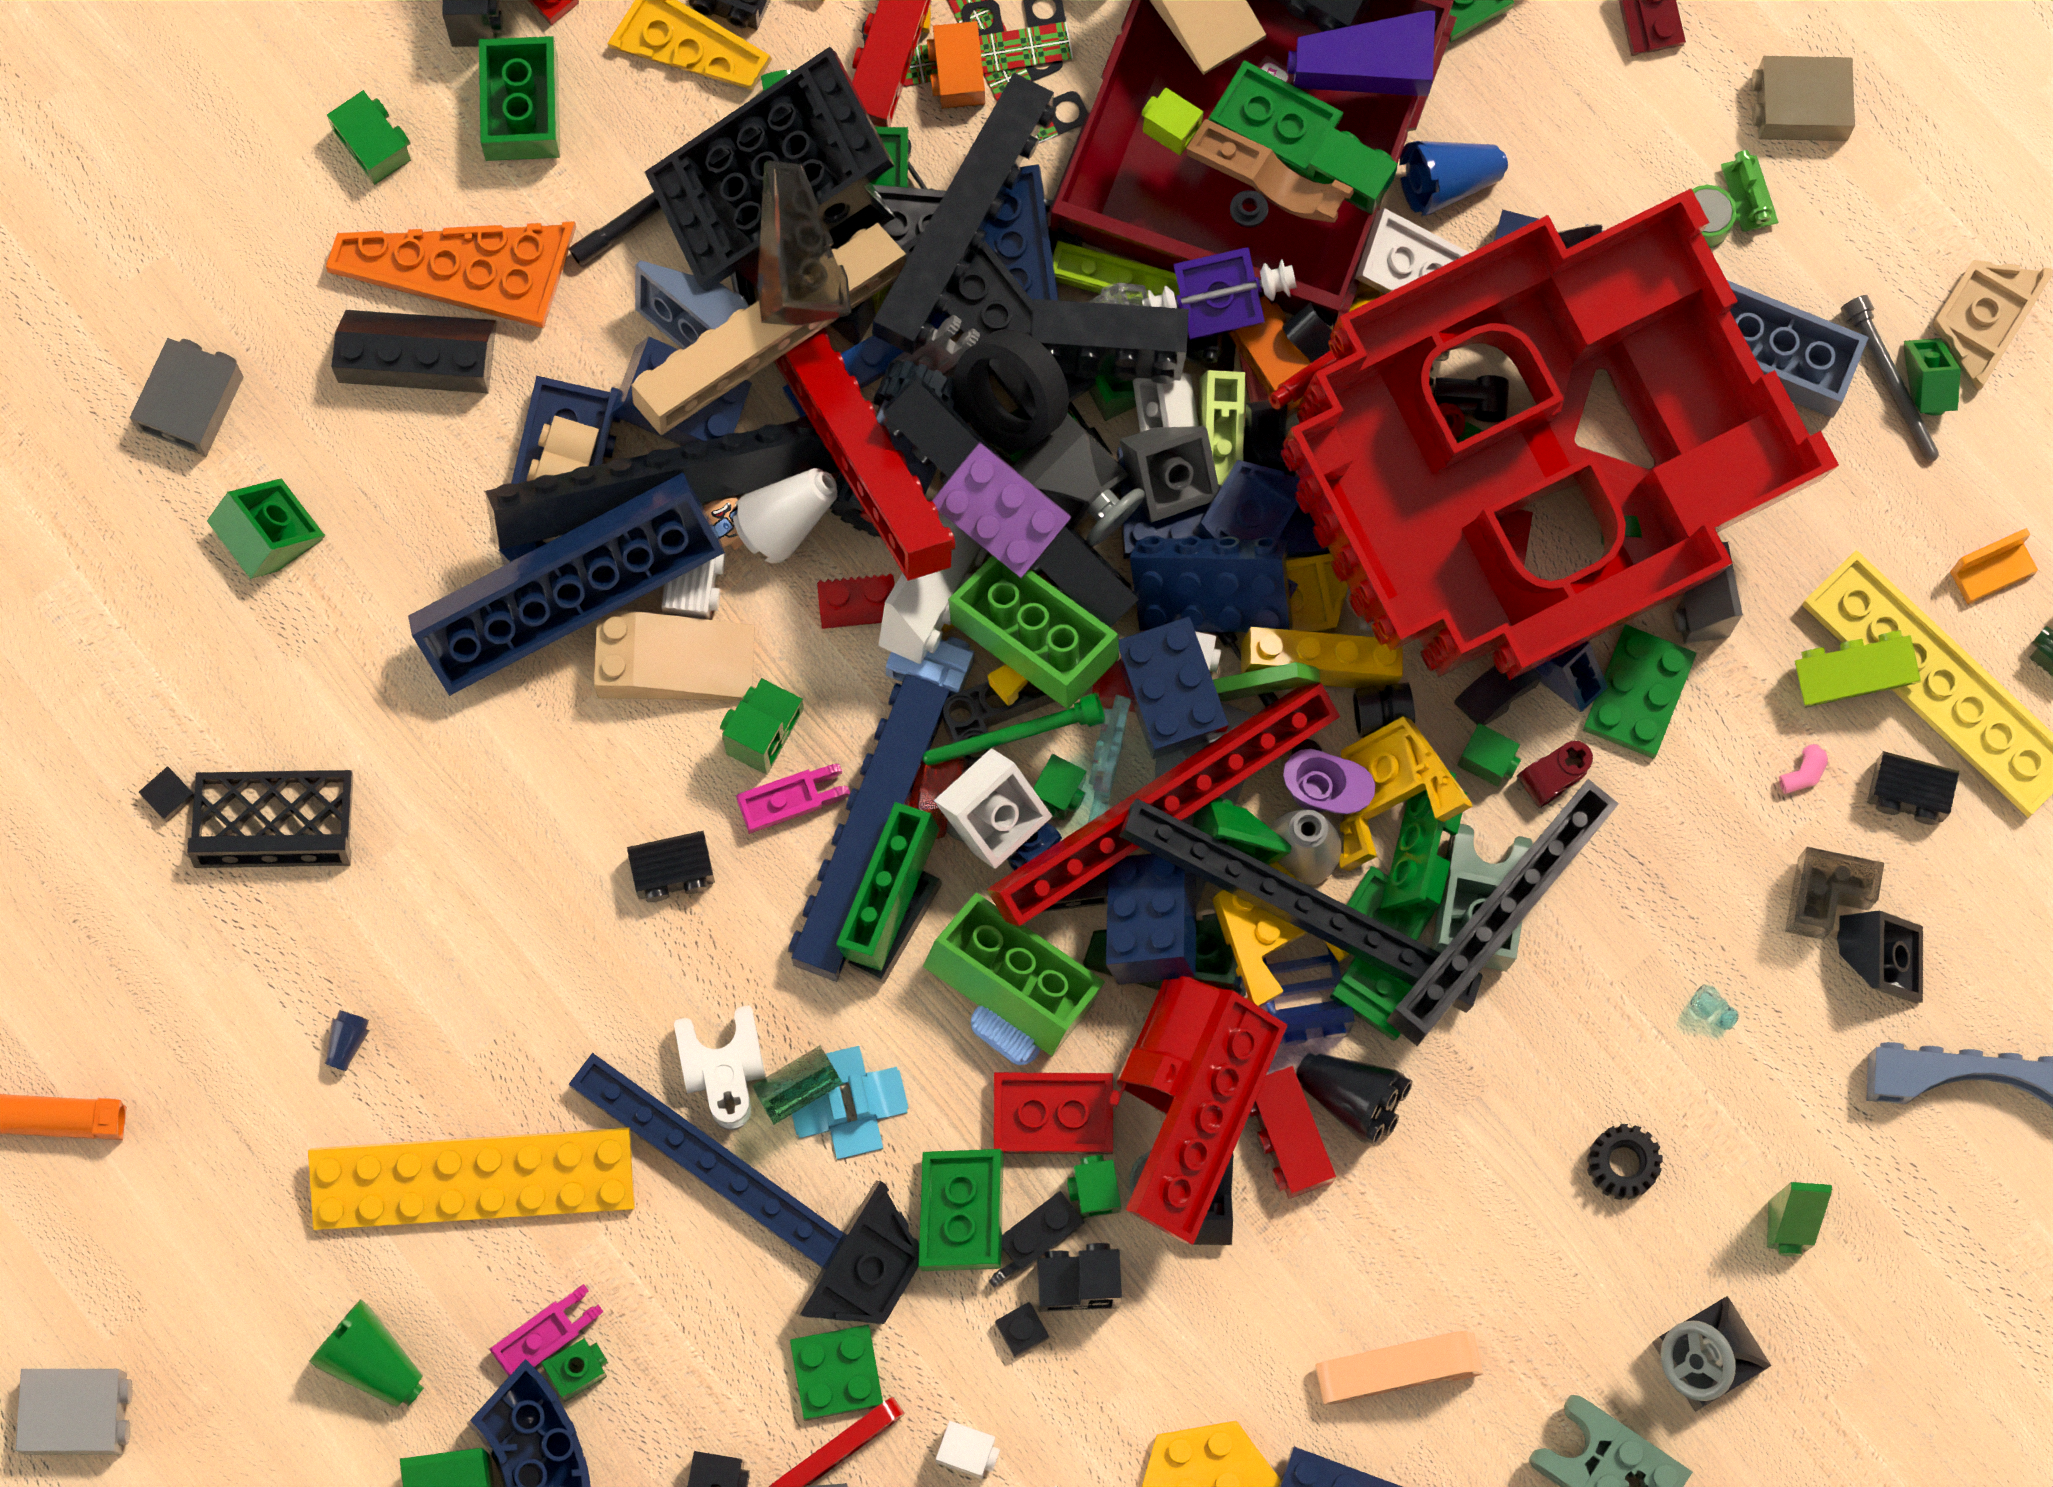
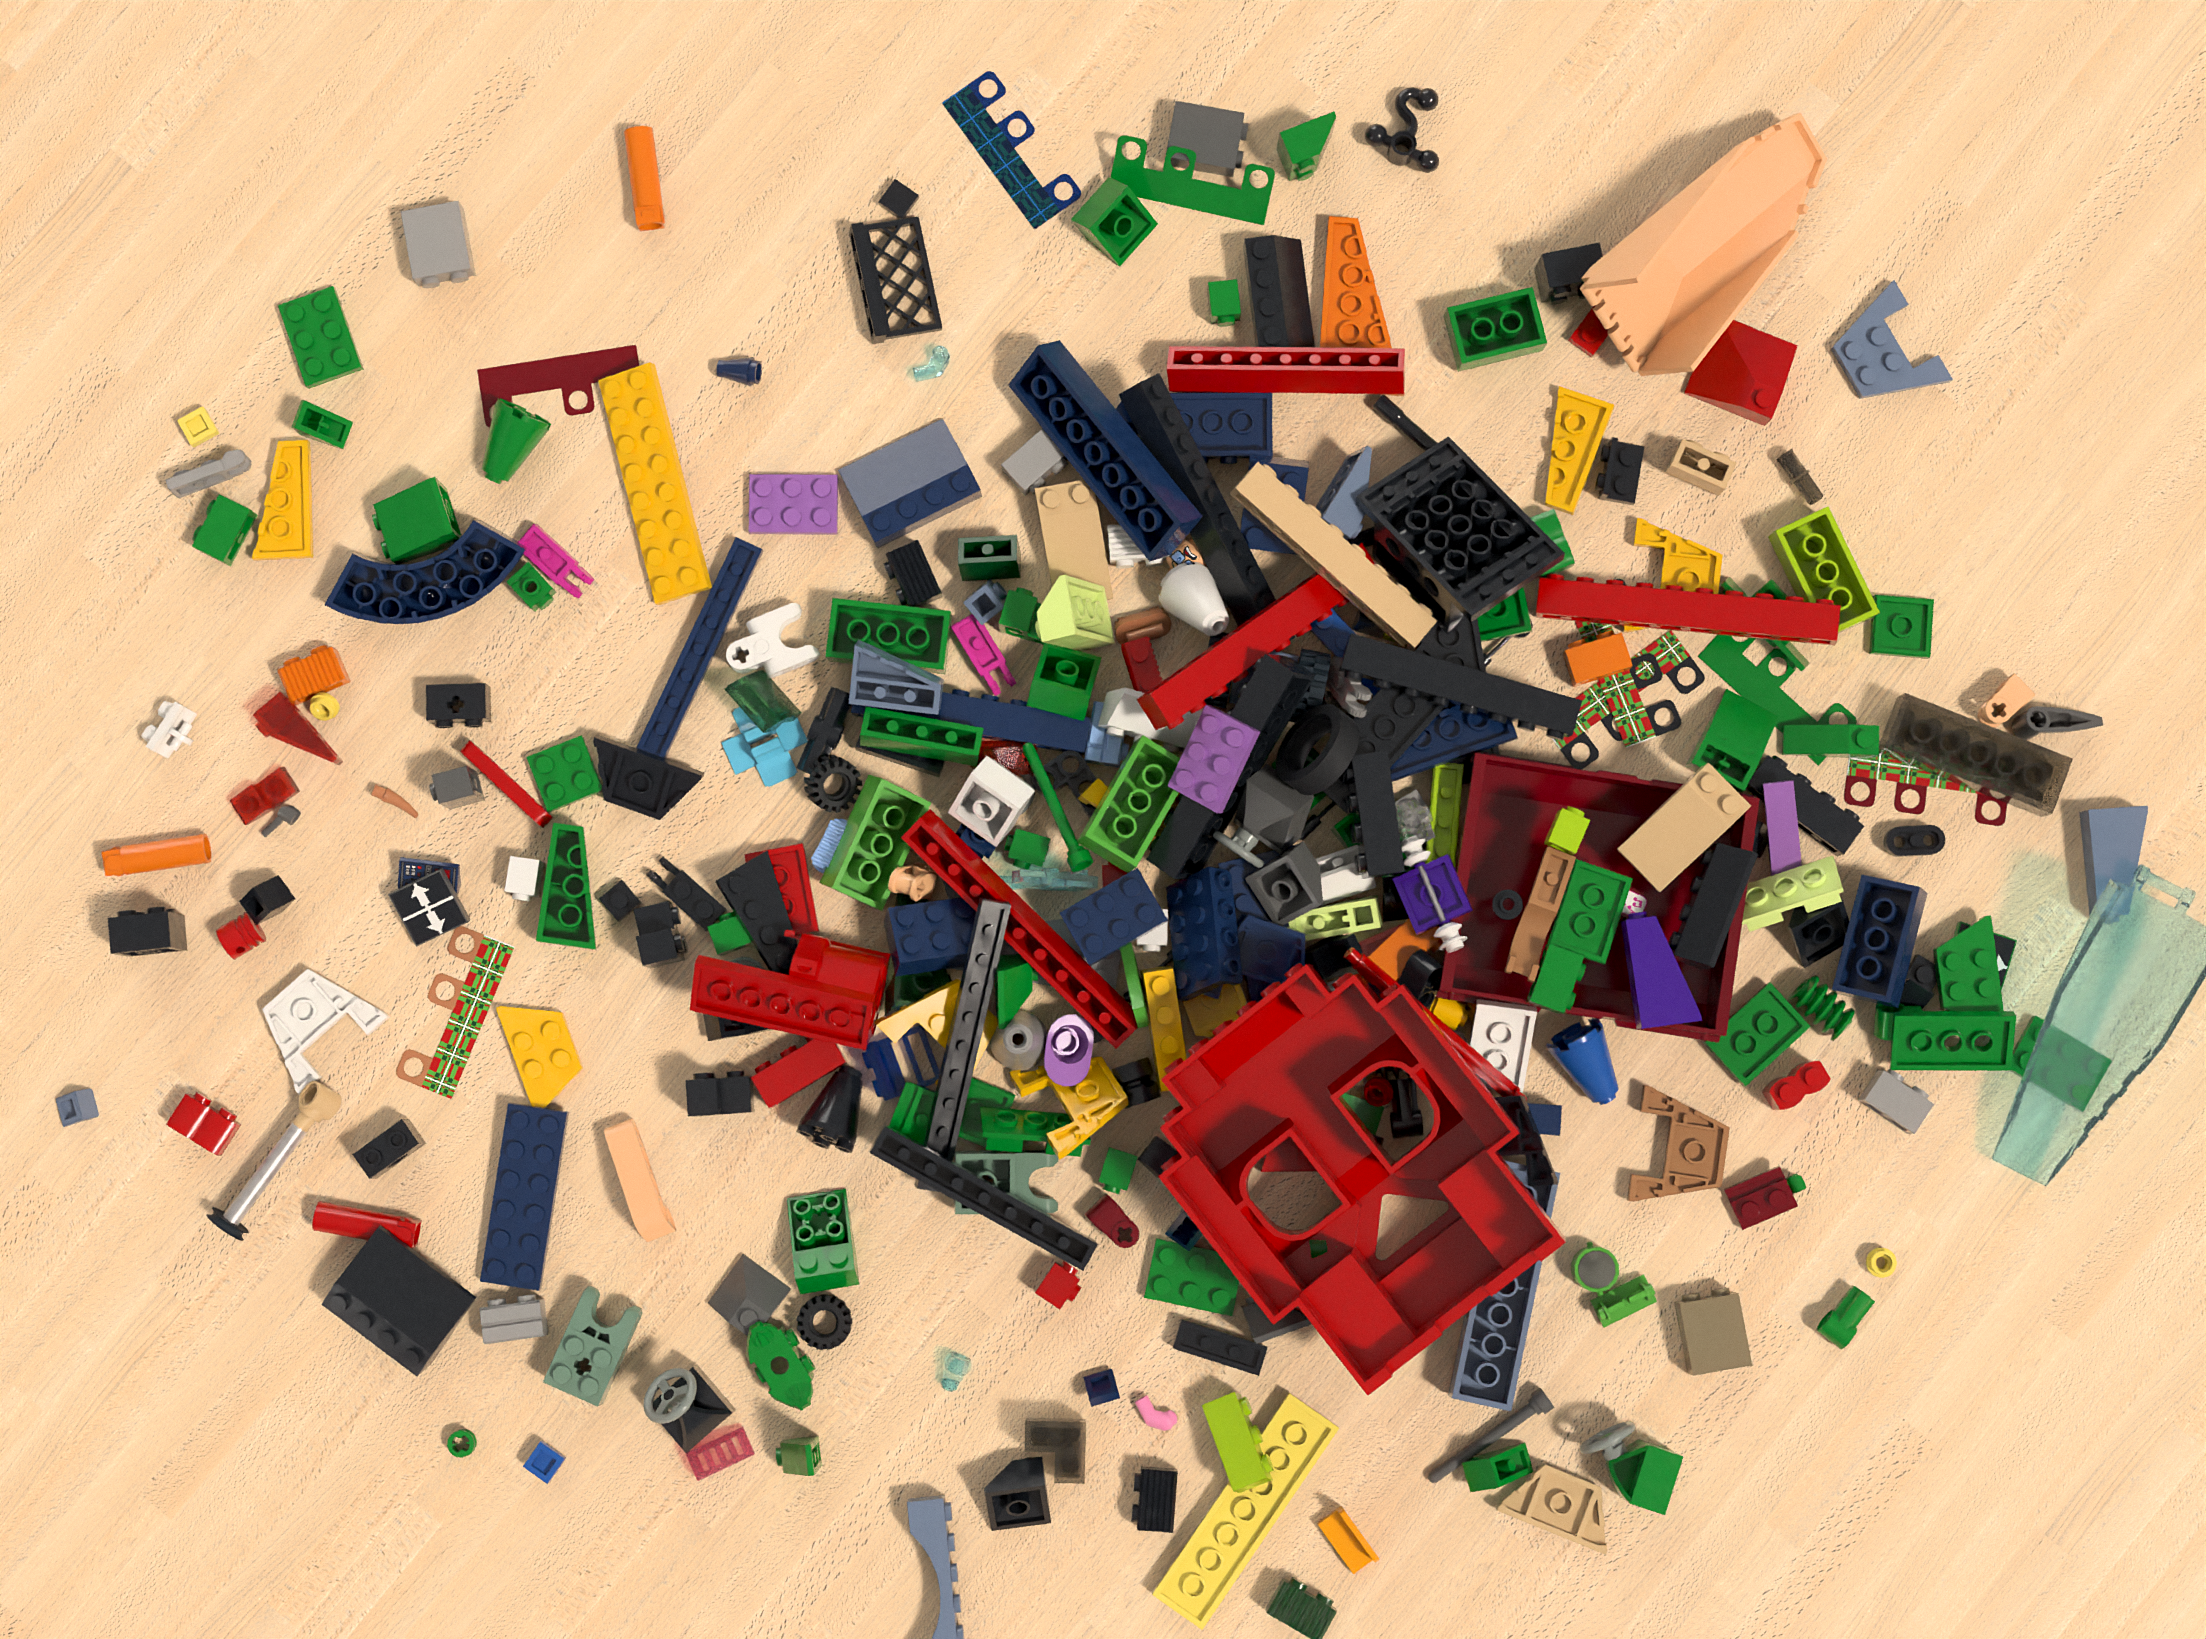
camera: 80 degrees right, 10 degrees up
(134, 658) = (998, 151): none -> piece
(231, 273) = (1304, 146): none -> green slope
(237, 190) = (1376, 134): none -> black piece
(248, 435) = (1182, 190): none -> green piece
(290, 1273) = (565, 372): none -> dark red piece
(369, 136) = (1442, 223): green brick -> none
(400, 788) = (936, 365): none -> clear light blue arm
(405, 414) = (1224, 302): none -> green brick
(513, 346) = (1286, 370): none -> red brick
(540, 1005) = (793, 504): none -> medium lavender plate
(546, 848) = (910, 483): none -> slope
(557, 685) = (1034, 463): none -> light grey brick
(565, 447) = (1210, 427): tan brick -> none
(670, 762) = (989, 557): none -> dark green brick
(726, 775) = (986, 601): none -> sand blue brick
(745, 908) = (903, 631): none -> green brick
(777, 658) = (1075, 615): none -> yellowish green slope
(796, 264) = (1382, 563): clear smoke wedge -> none
(798, 596) = (1150, 623): none -> nougat piece
(812, 905) = (892, 683): none -> sand blue wedge
(853, 696) = (1064, 681): none -> green brick
(853, 1017) = (826, 729): none -> black piece
(936, 1004) = (822, 772): none -> black tyre
(961, 1210) = (695, 839): green plate -> none
(997, 1393) = (566, 896): none -> green wedge
(1072, 933) = (914, 880): none -> light nougat piece
(1077, 1137) = (759, 907): none -> black wing
(1308, 1239) = (719, 1095): none -> black brick
(1519, 1144) = (822, 1241): none -> green slope
(1576, 1254) = (748, 1295): none -> dark grey slope
(1580, 78) = (1692, 1154): none -> medium nougat wing
(1623, 855) = (1059, 1284): none -> red brick
(1705, 1216) = (793, 1386): none -> green piece
(1733, 675) = (1220, 1347): none -> black plate
(1762, 827) = (1101, 1387): none -> dark blue plate
(1797, 1354) = (695, 1462): none -> clear pink slope
(1958, 211) = (1641, 1471): none -> green piece

